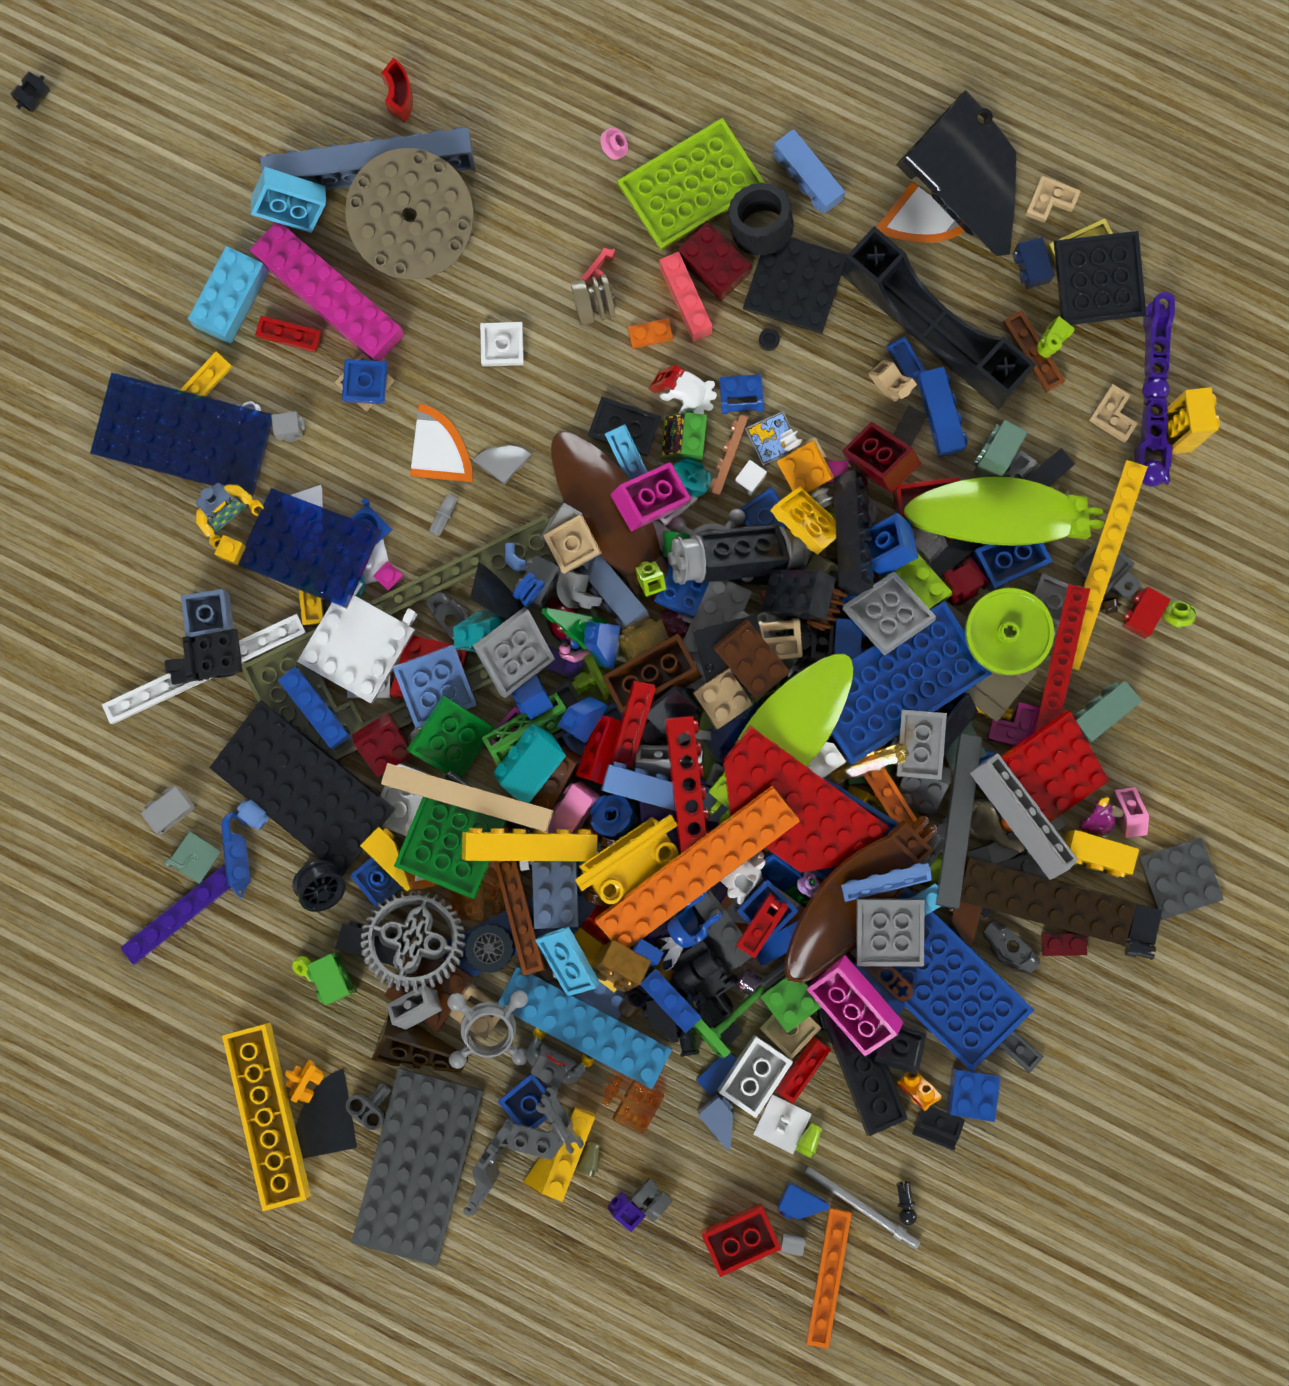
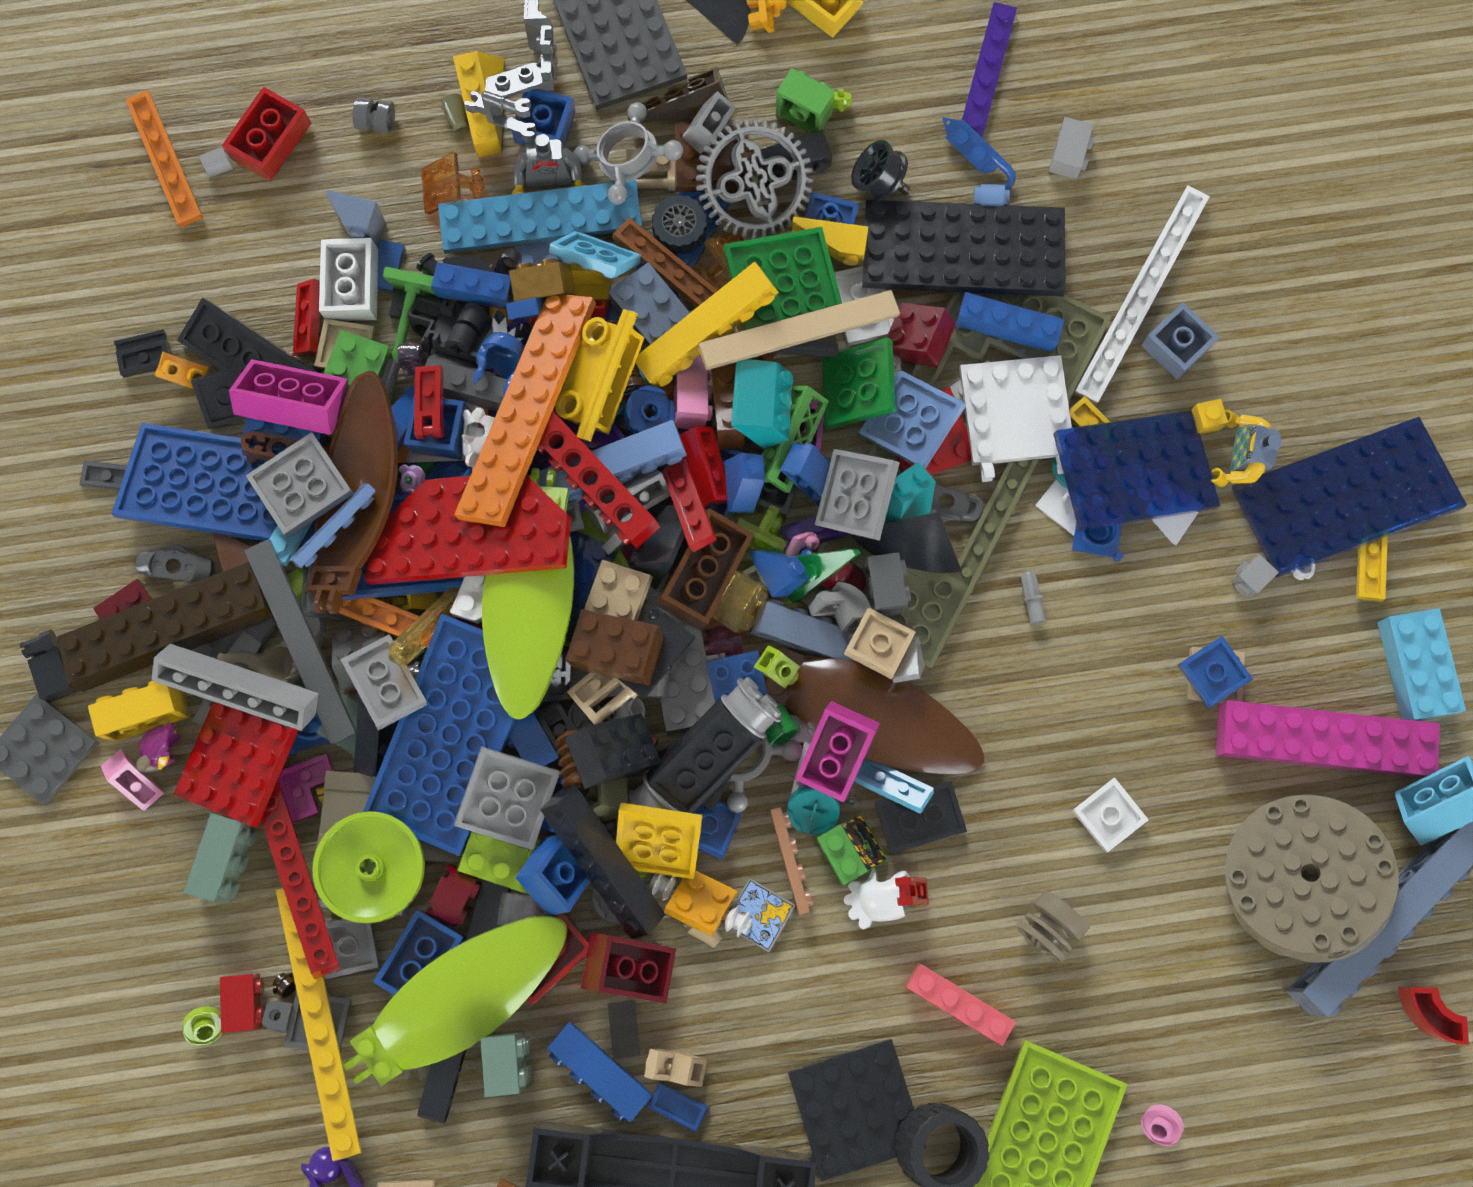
camera: 140 degrees right, 5 degrees down
(194, 857) = (1014, 123): sand green hat -> none
(207, 657) = (1147, 298): black plate -> none
(288, 334) = (1329, 670): red plate -> none
(370, 1105) = (687, 26): dark grey beam -> none
(388, 576) = (1039, 501): dark pink plate -> none
(439, 448) = (1089, 663): sticker -> none
(502, 461) = (1015, 693): light grey brick -> none
(512, 560) = (929, 596): medium blue arm -> none
(528, 589) = (891, 559): blue wheel -> none
(594, 270) = (1077, 966): coral piece -> none
(625, 1211) = (393, 90): dark purple bracket -> none
(650, 333) = (967, 939): orange plate -> none
(714, 261) = (958, 1066): dark red brick -> none
(741, 387) = (829, 948): blue plate -> none
(751, 477) = (752, 854): white panel -> none
(769, 339) = (838, 1023): black tile -> none
(782, 1124) = (295, 260): white piece -> none
(800, 1203) = (231, 203): blue slope -> none
(809, 1141) = (259, 259): lime cone -> none
(837, 468) = (668, 929): dark pink plate -> none
(897, 1230) = (124, 239): light grey bar -> none
(907, 1215) = (124, 259): black pin -> none
(973, 1094) = (126, 402): blue brick -> none
(1021, 466) = (472, 1070): light grey plate -> none

